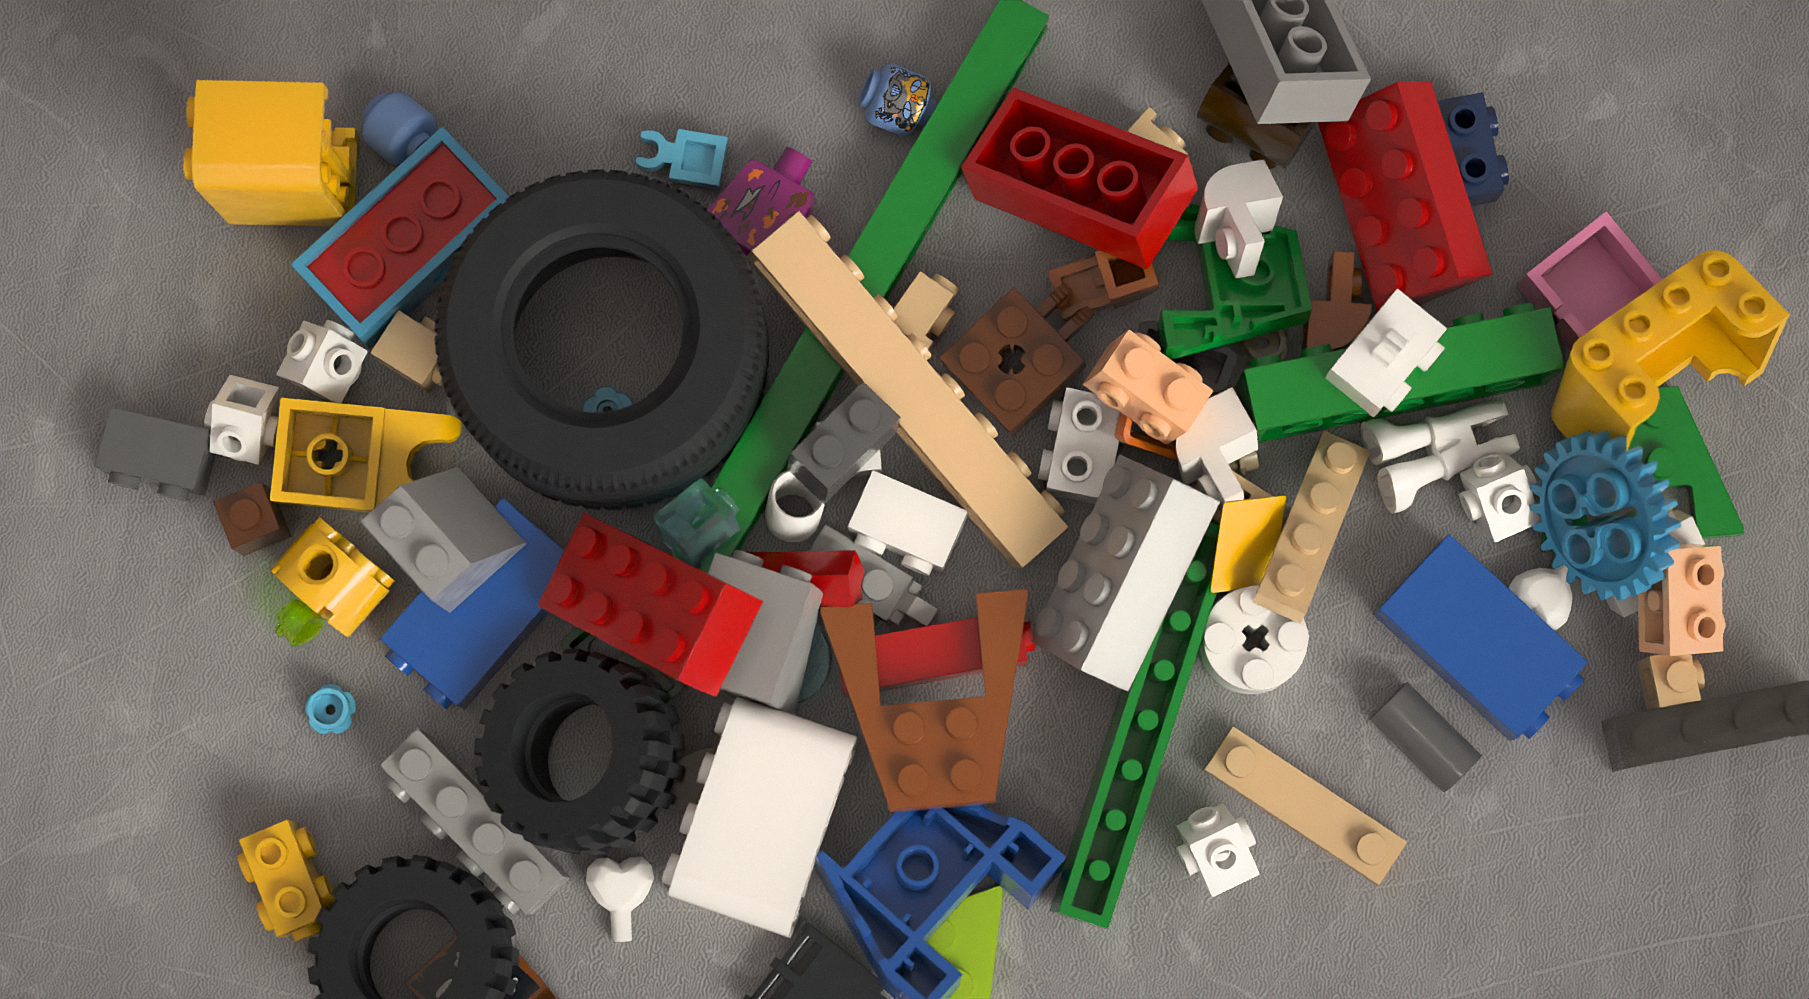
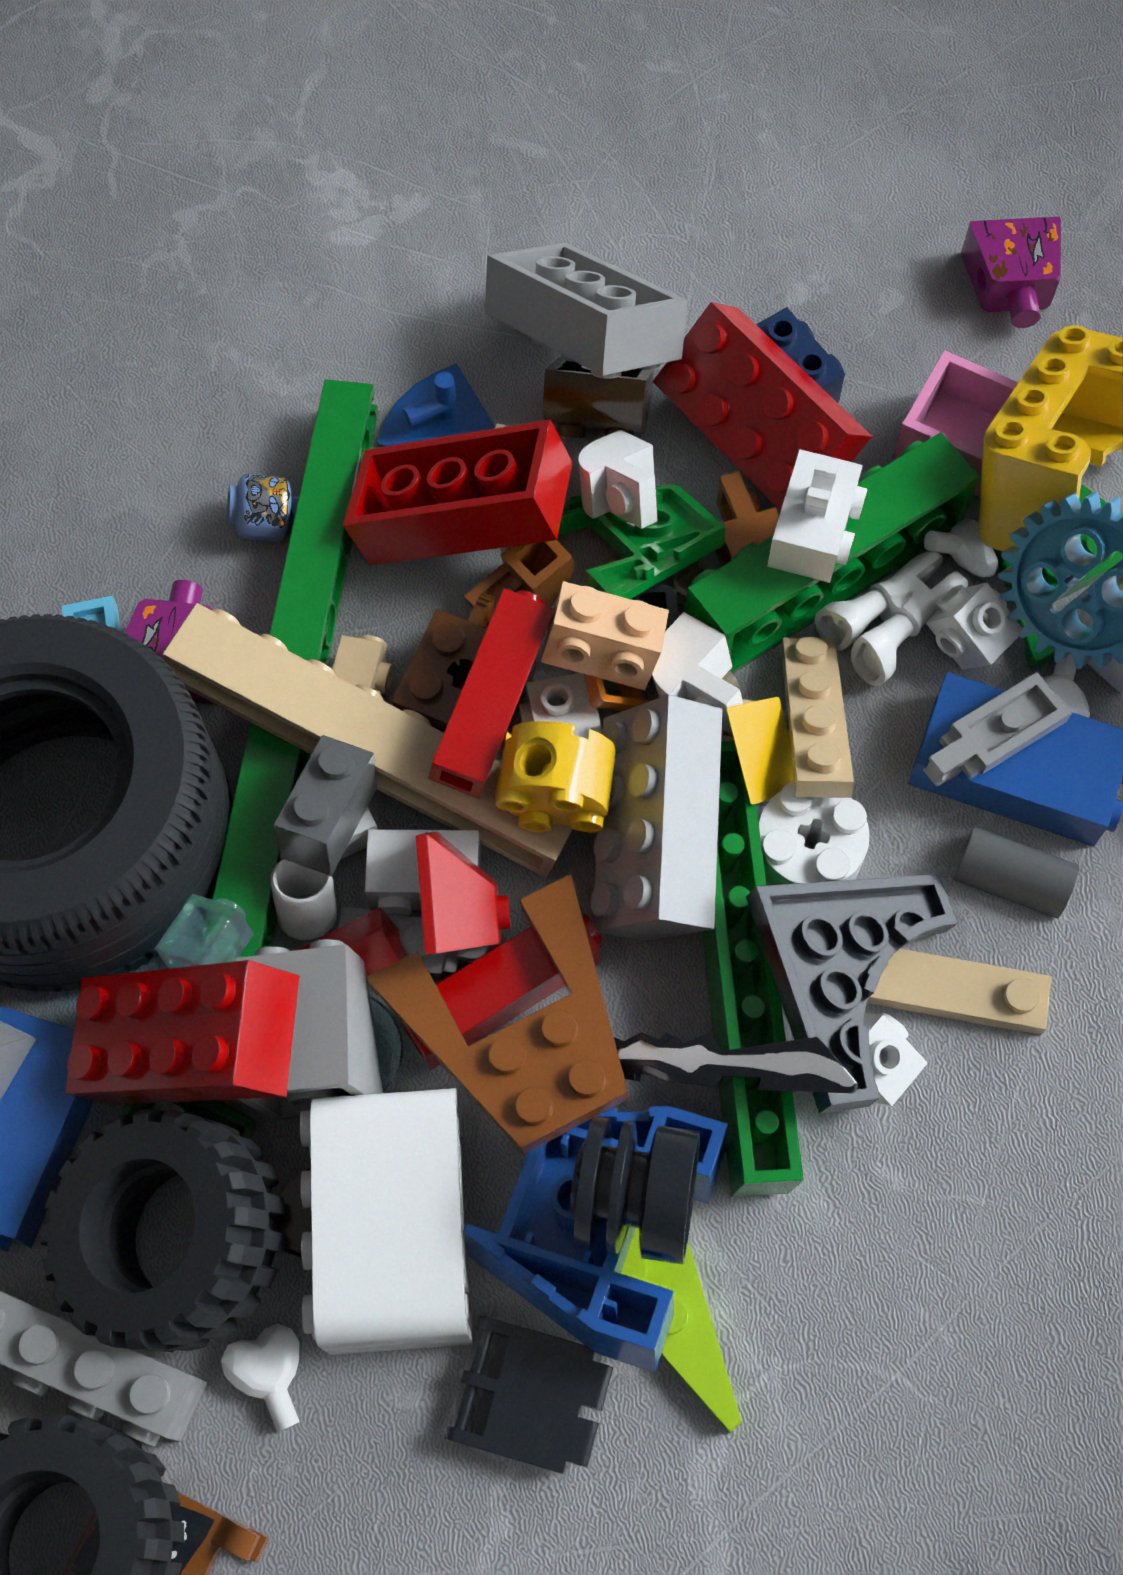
camera: 25 degrees left, 15 degrees down
(922, 575) = (457, 899): none -> slope
(964, 888) = (636, 1189): none -> black wheel
(1028, 398) = (491, 692): none -> red brick
(1047, 505) = (555, 777): none -> yellow brick
(1102, 59) = (435, 409): none -> blue shield
(1128, 835) = (782, 1066): none -> sword
(1214, 751) = (830, 951): none -> plate
(1463, 613) = (998, 730): none -> light grey hinge
(1533, 410) = (965, 548): none -> white rock
(1738, 129) = (1014, 265): none -> magenta torso

